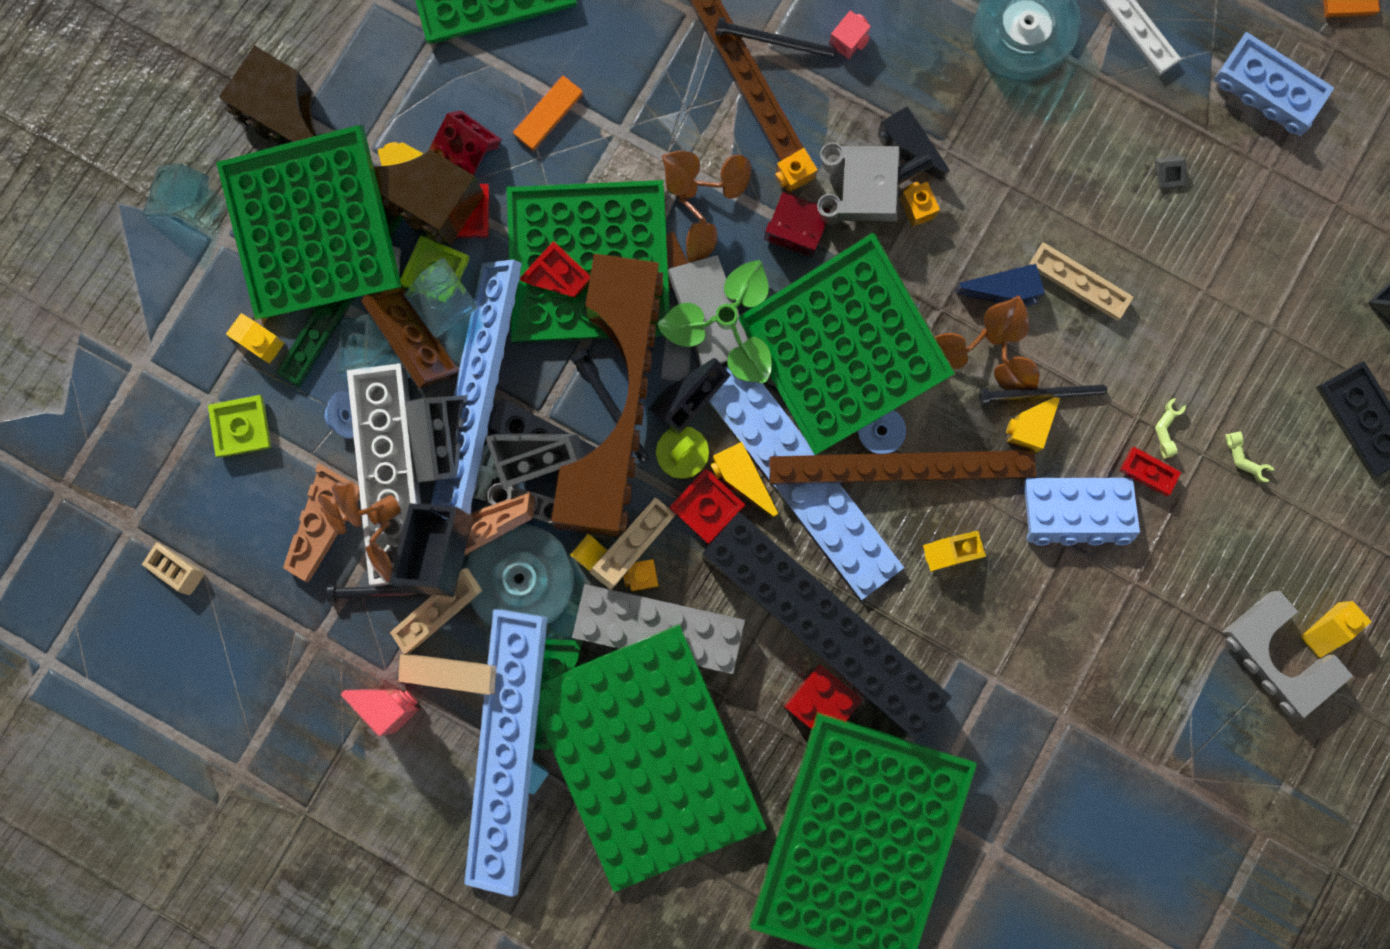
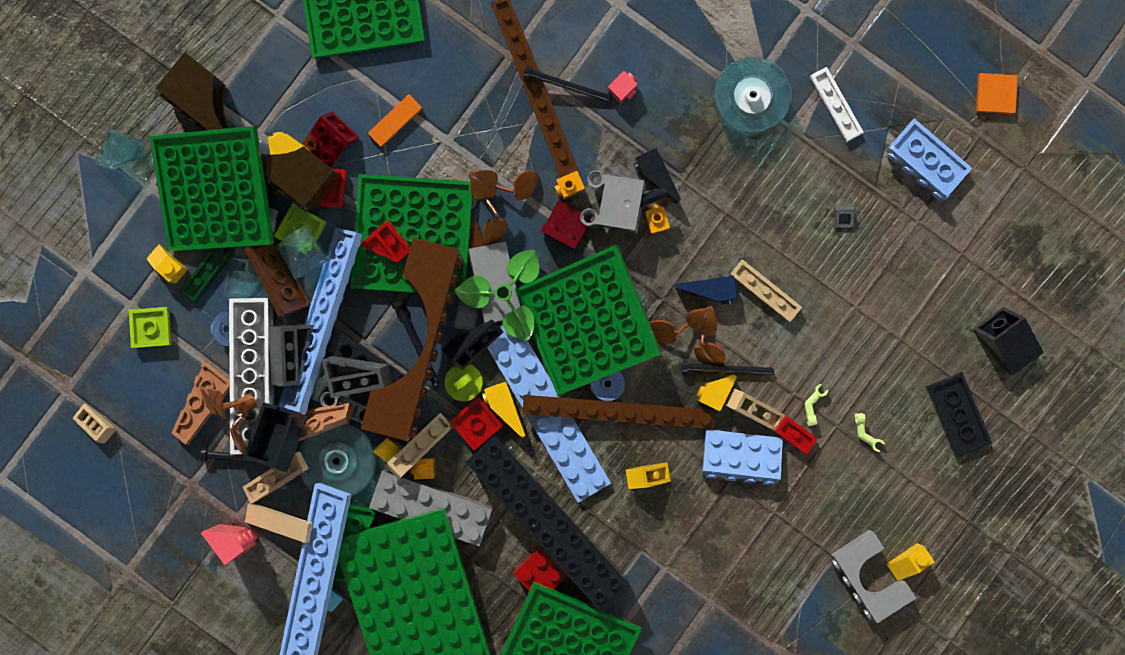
camera: 10 degrees right, 5 degrees up
(1087, 442) = (753, 409): none -> tan slope

